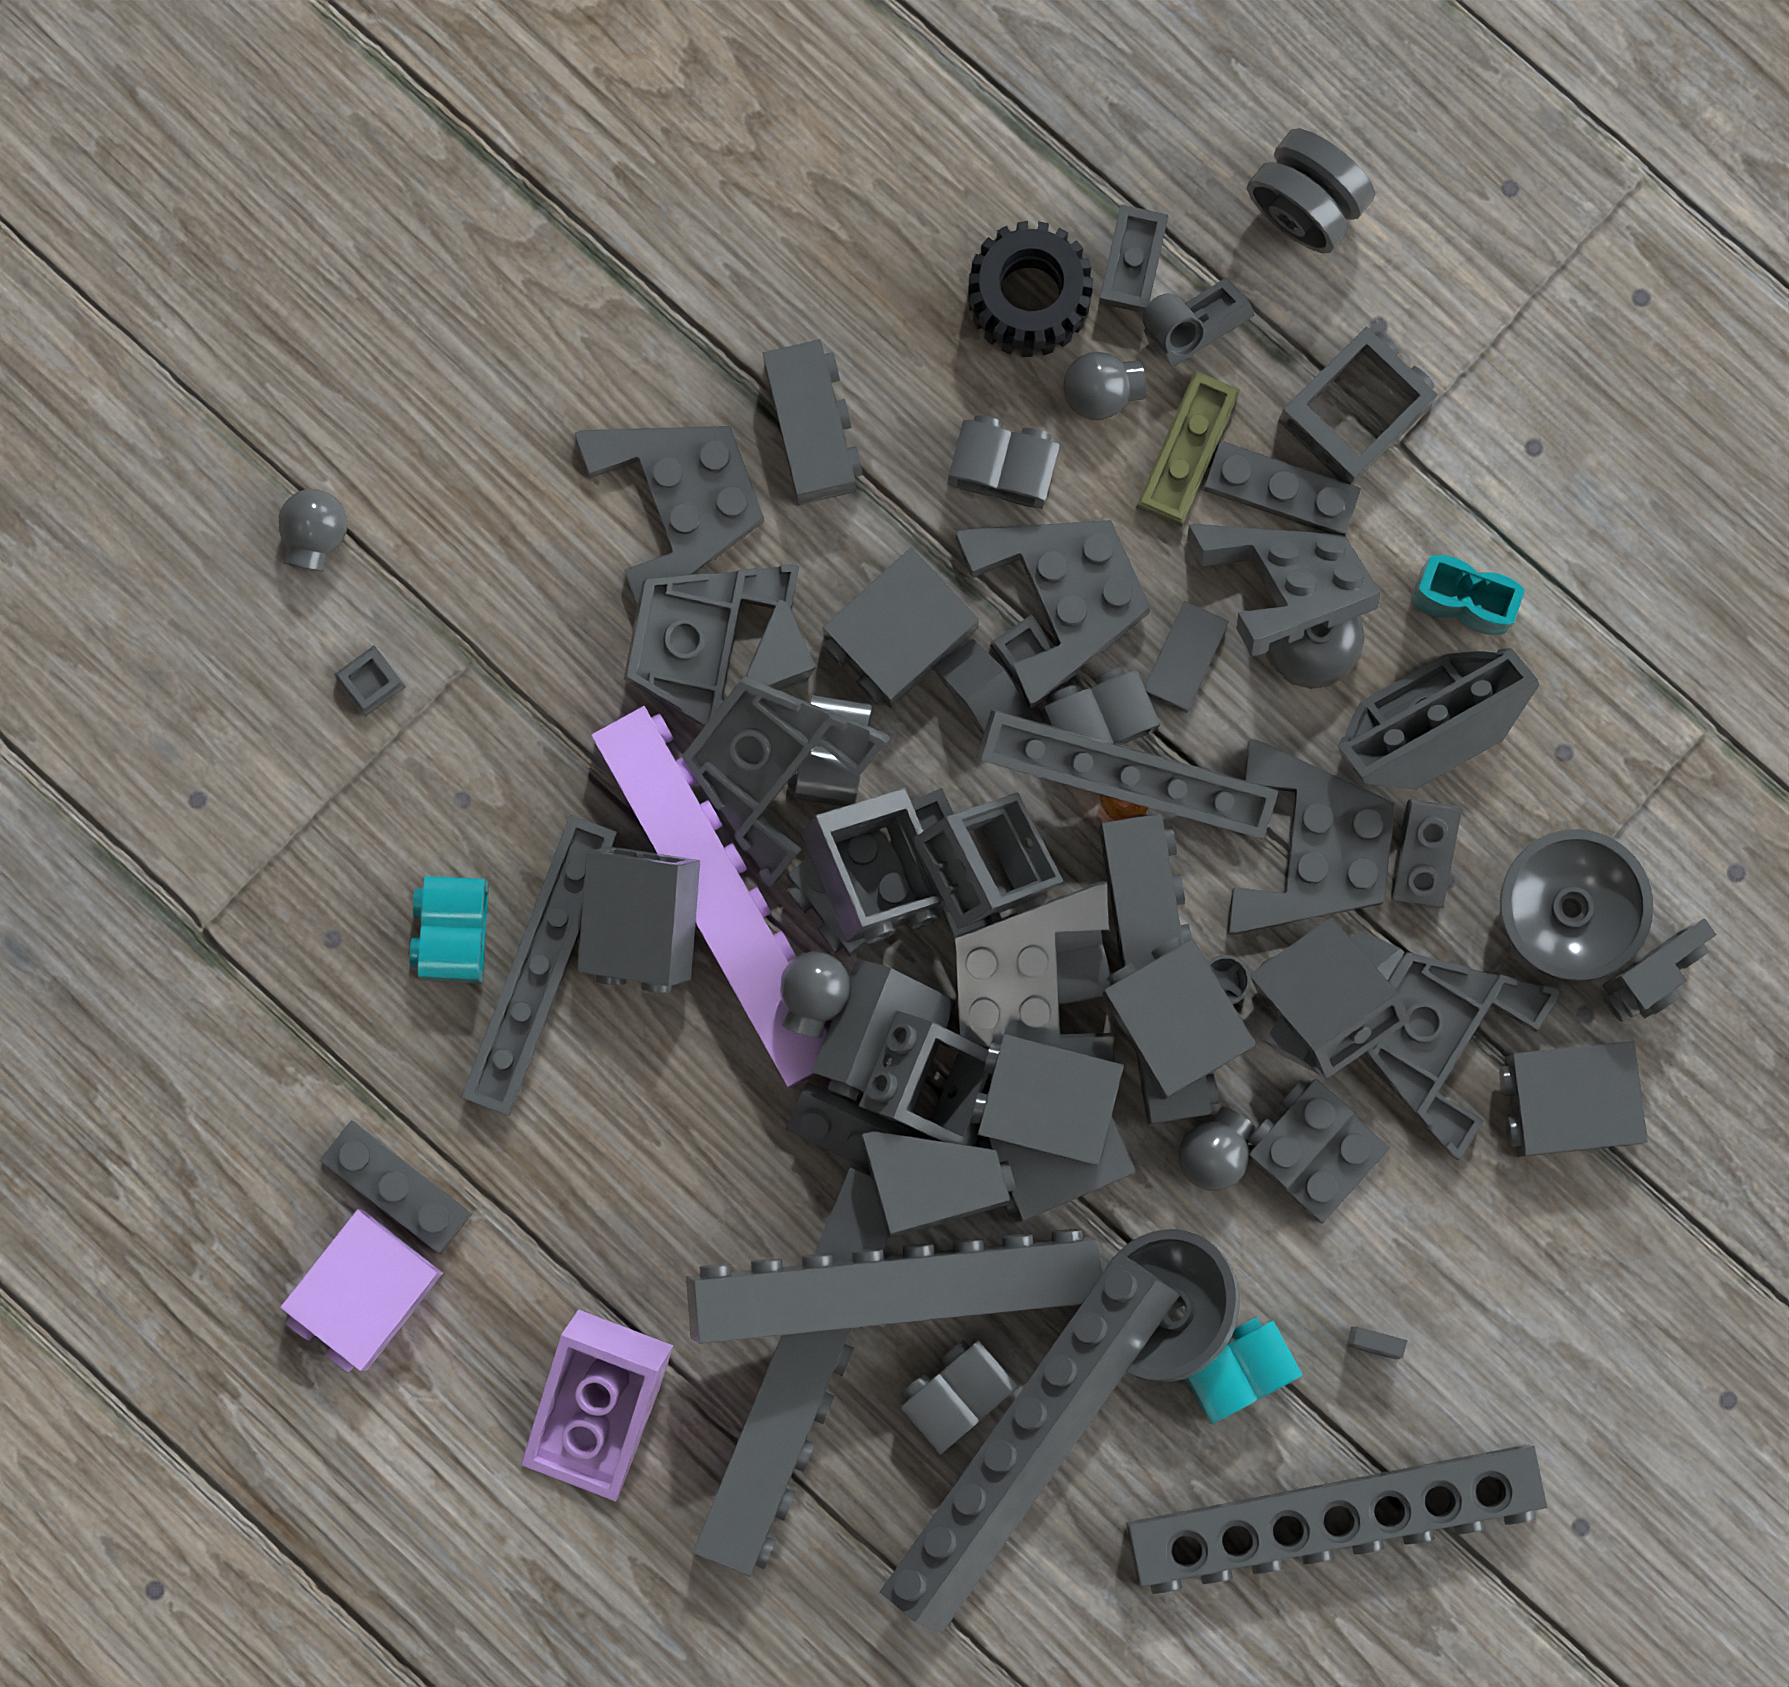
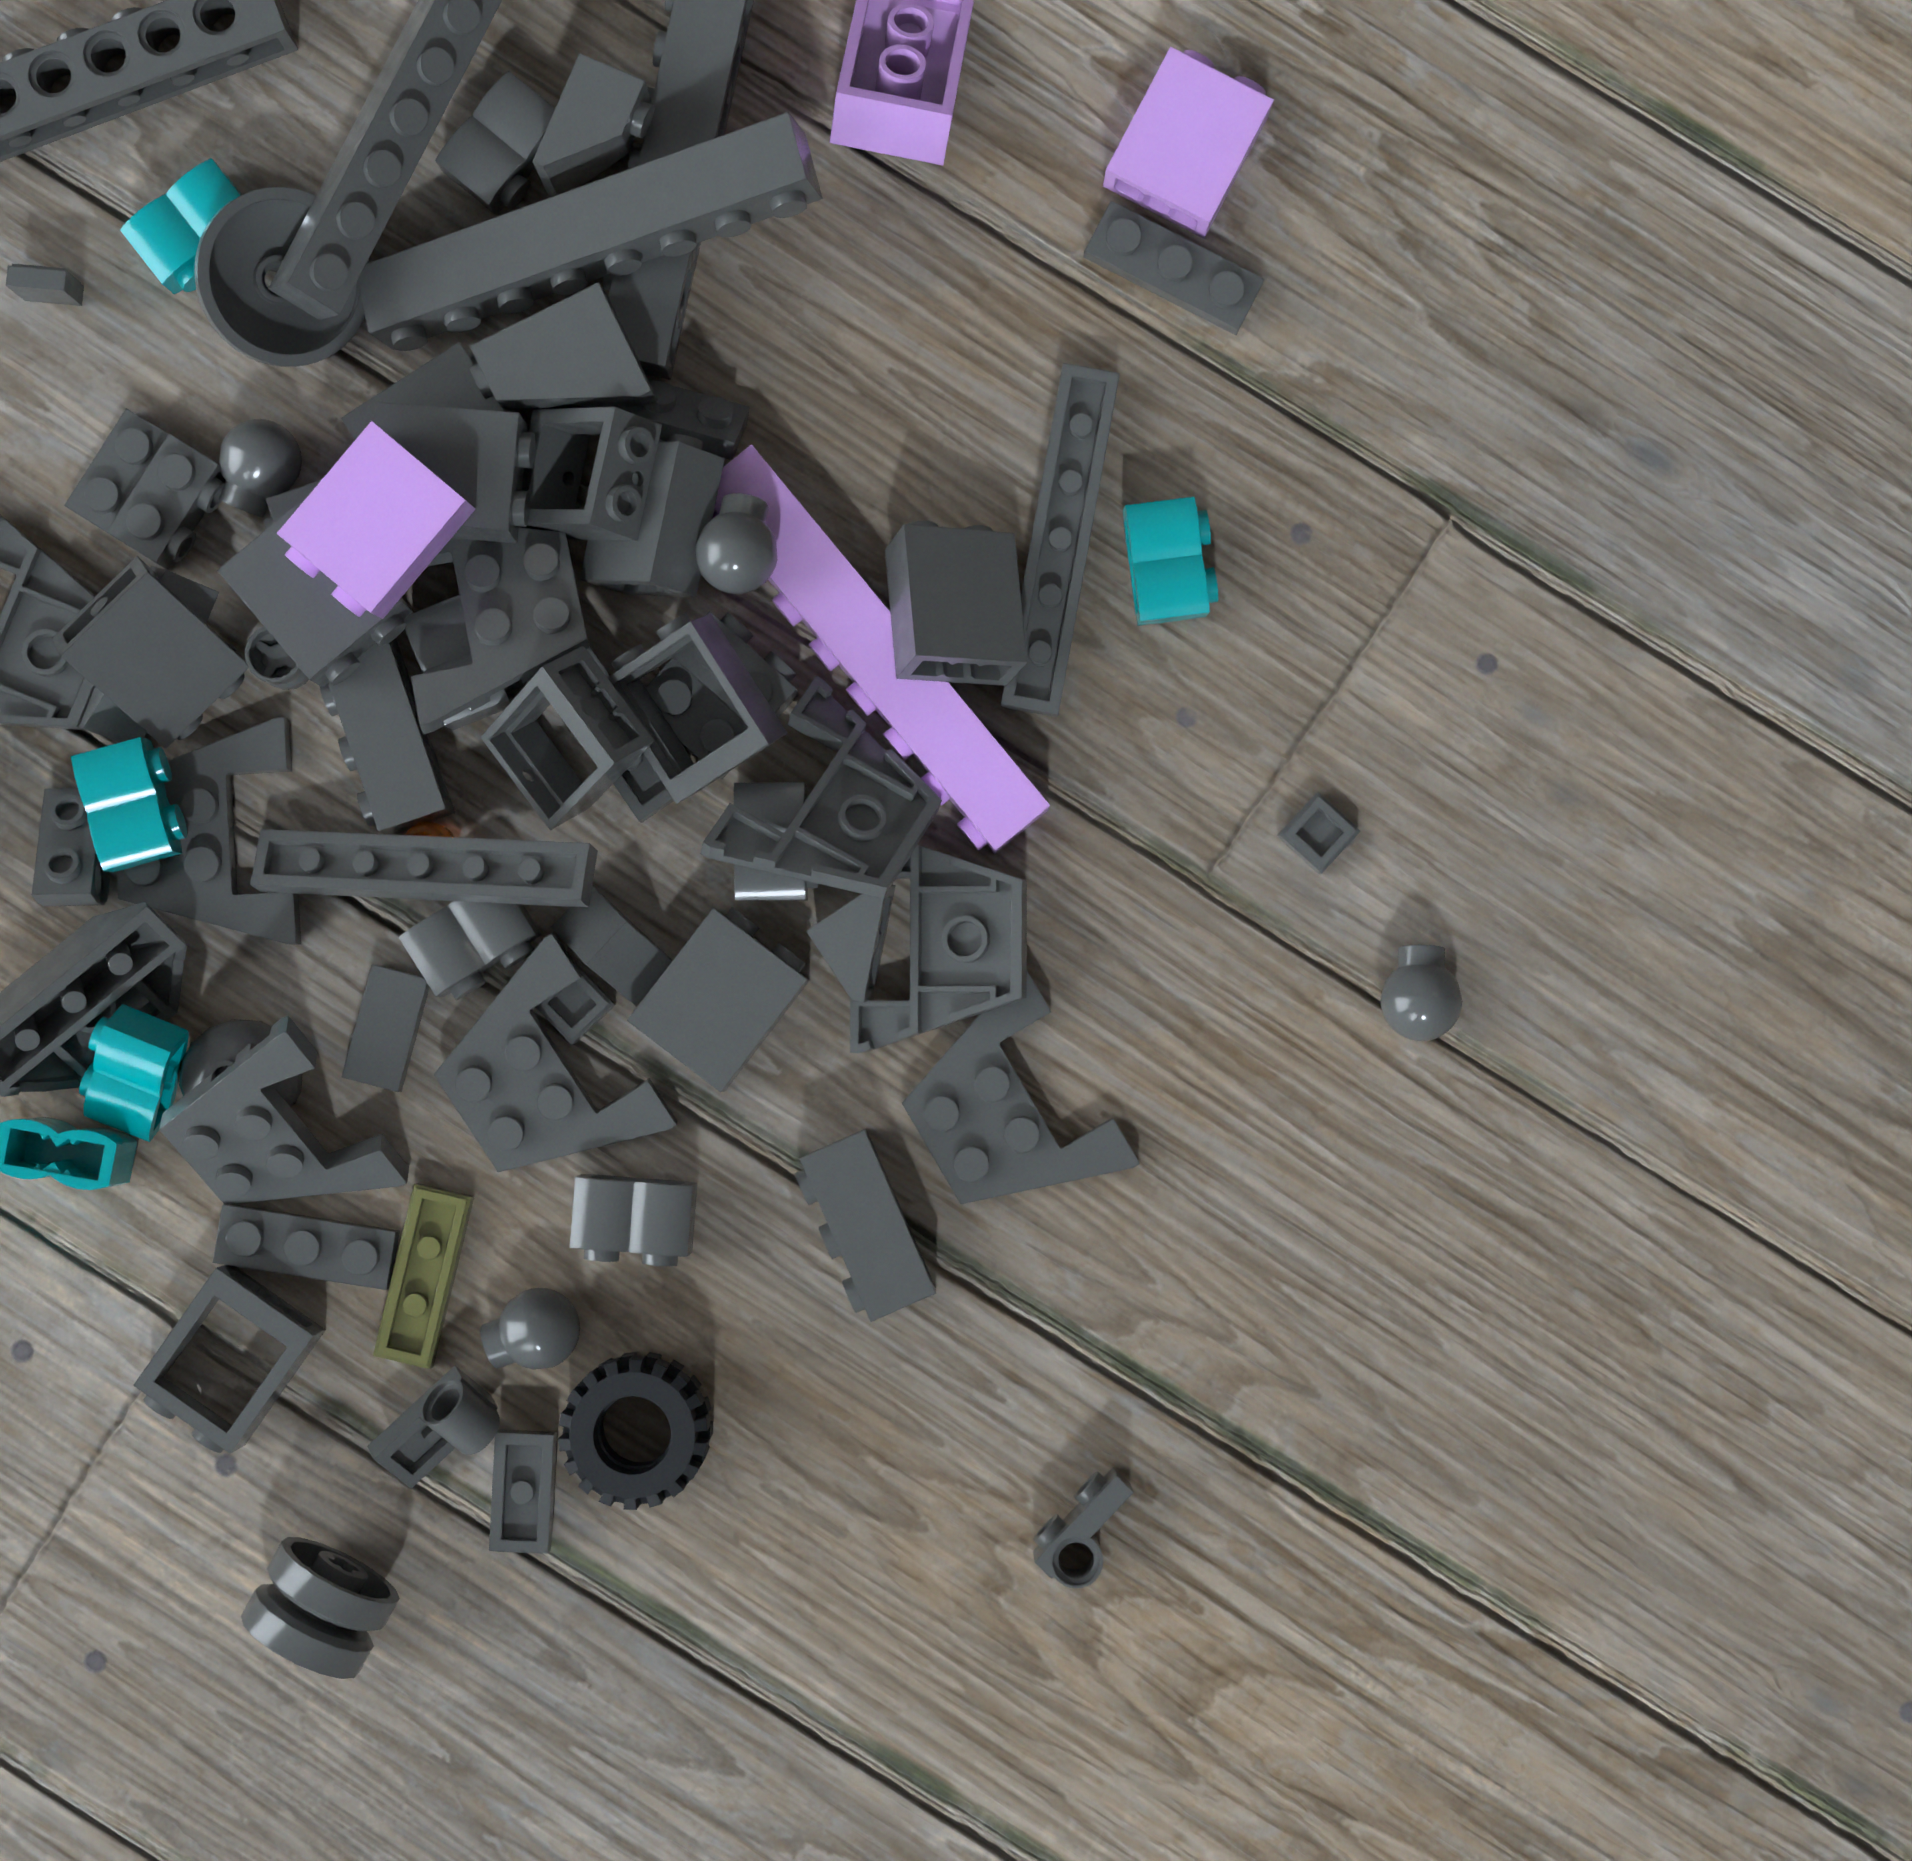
camera: 165 degrees right, 5 degrees up
(663, 164) = (1097, 1503): none -> dark grey plate
(870, 1387) = (592, 125): none -> dark grey slope
(1112, 1052) = (374, 523): none -> lavender brick
(1367, 871) = (129, 804): none -> teal brick
(1399, 650) = (133, 1071): none -> teal brick

